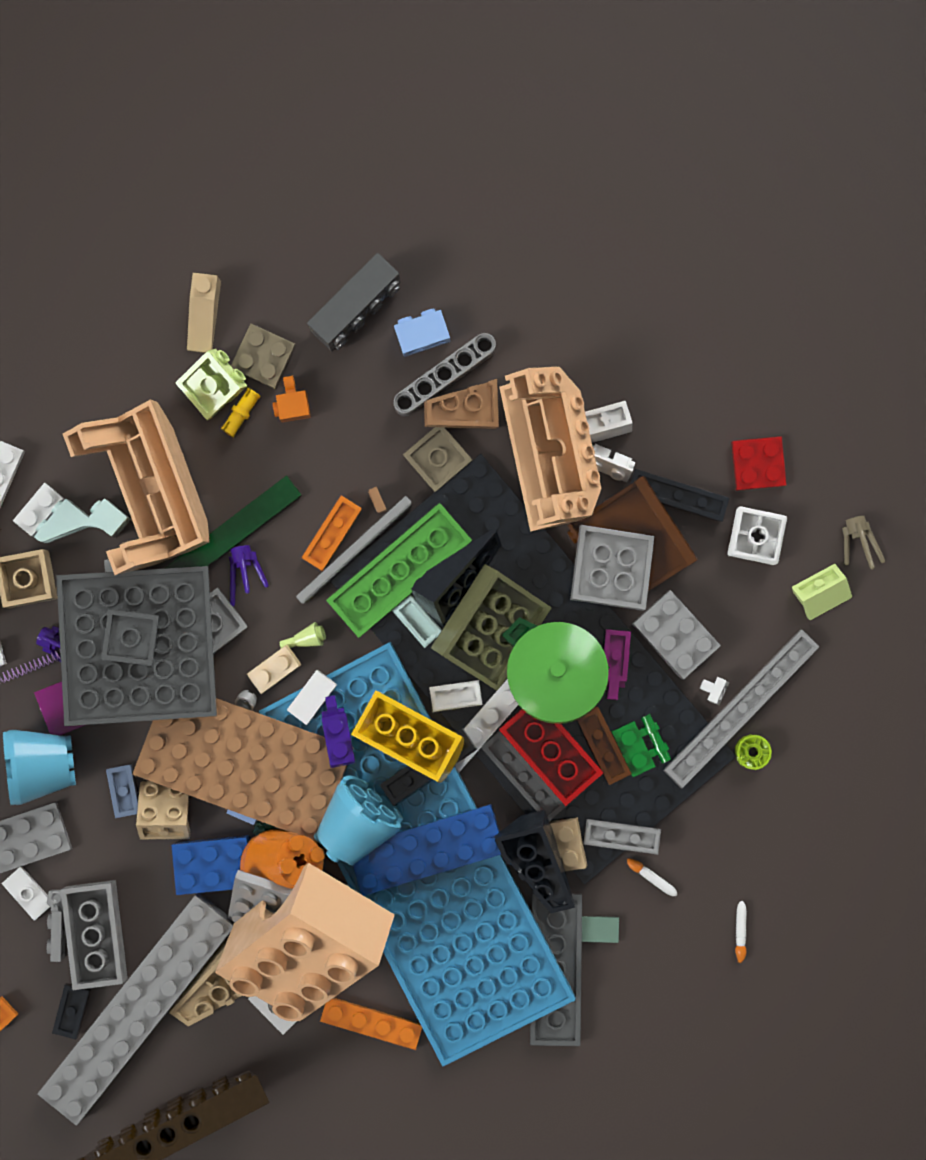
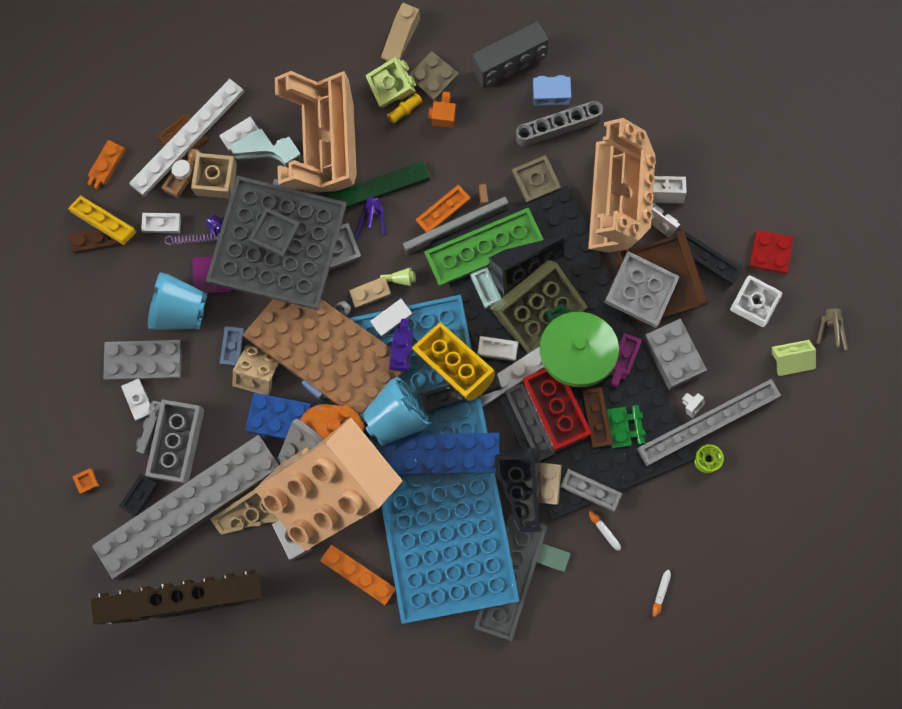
camera: 20 degrees right, 10 degrees down
(465, 409) = (566, 150): medium nougat wing -> none

